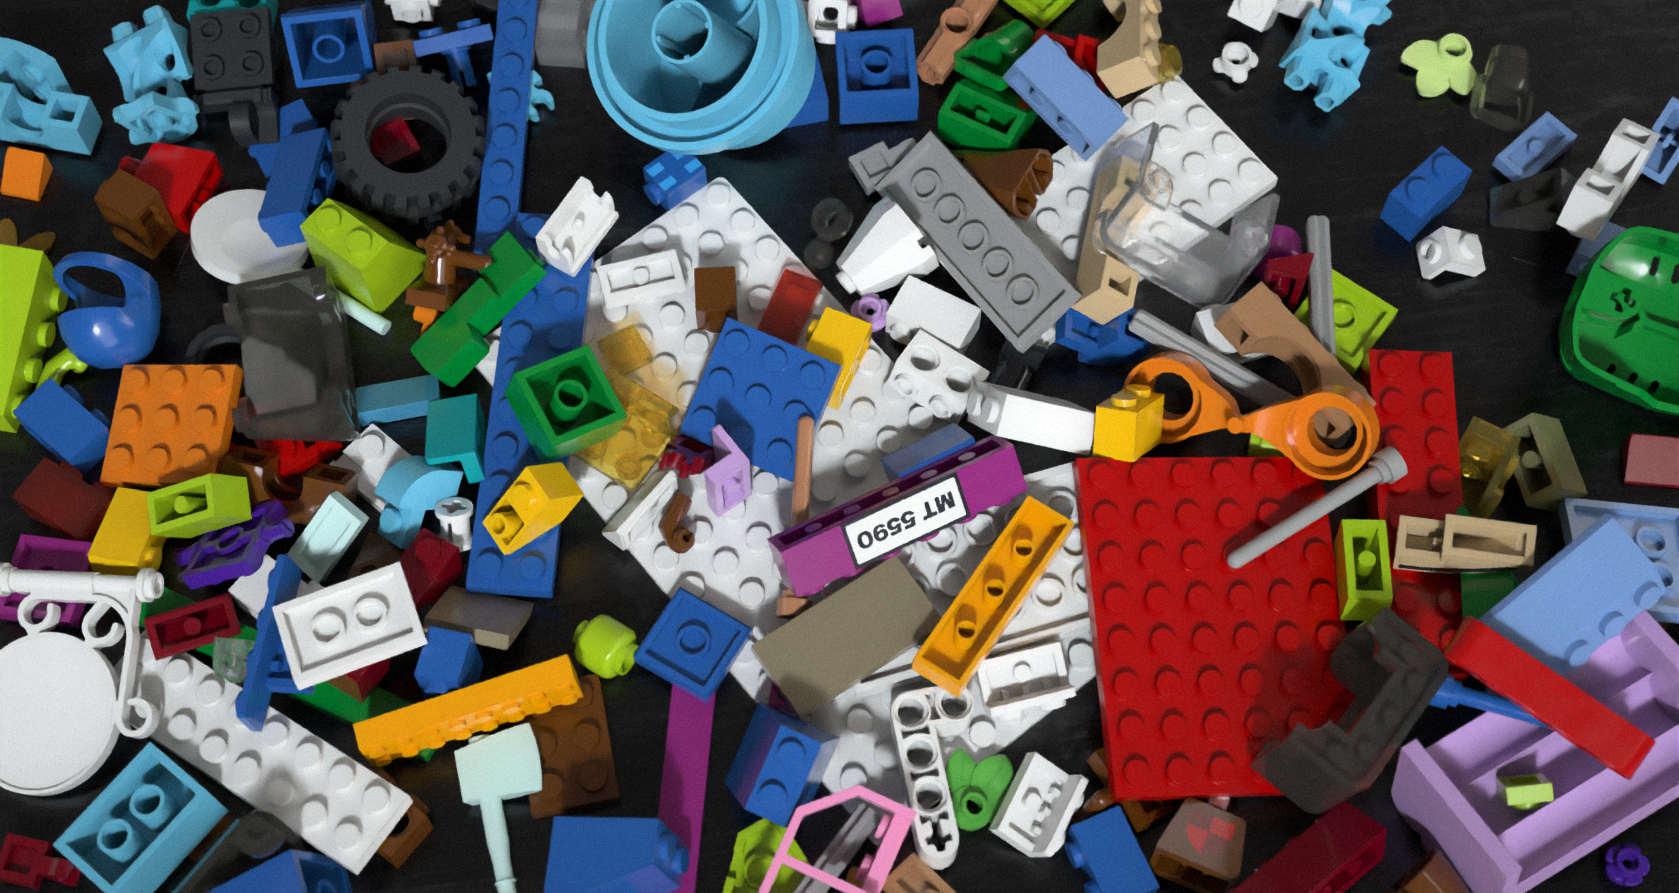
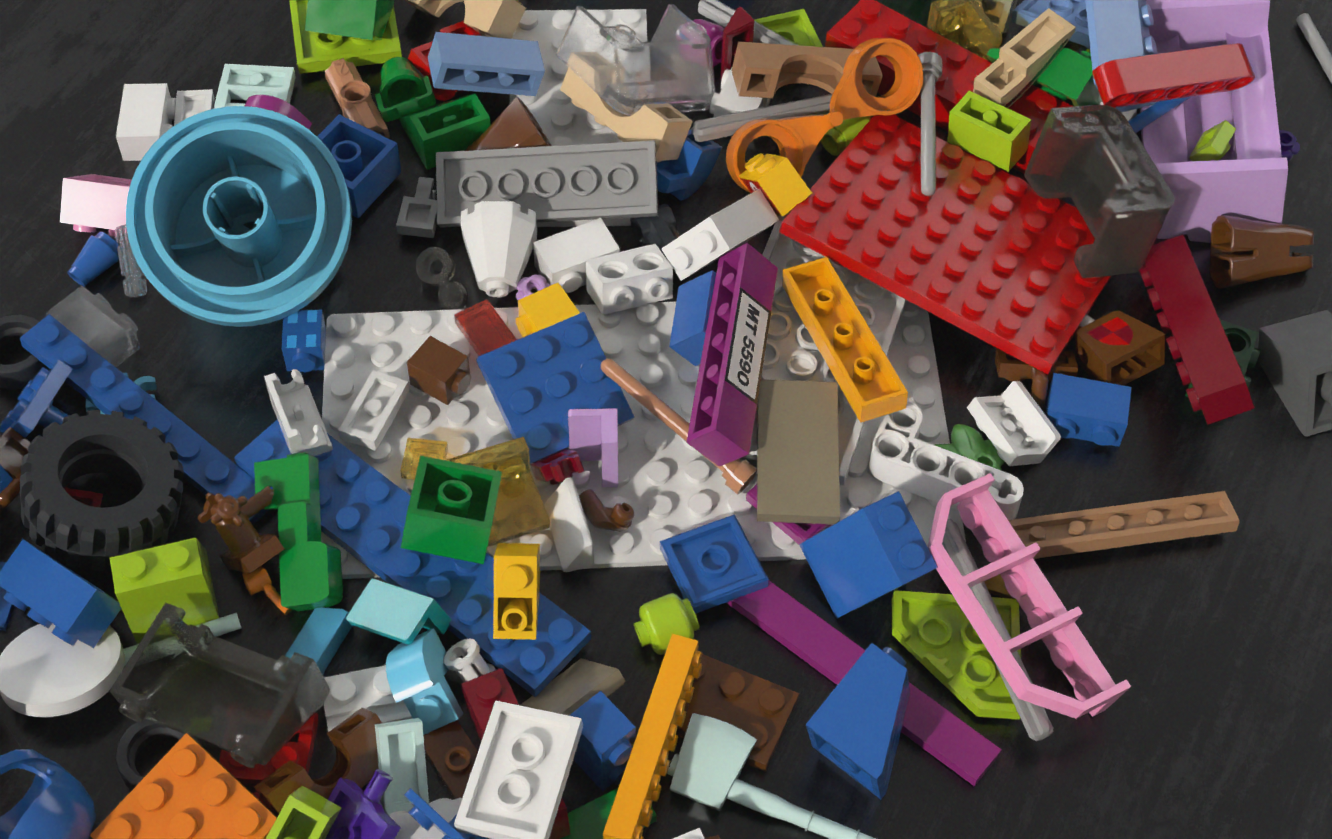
camera: 55 degrees left, 10 degrees down
(1024, 680) = (920, 366): white bracket -> none

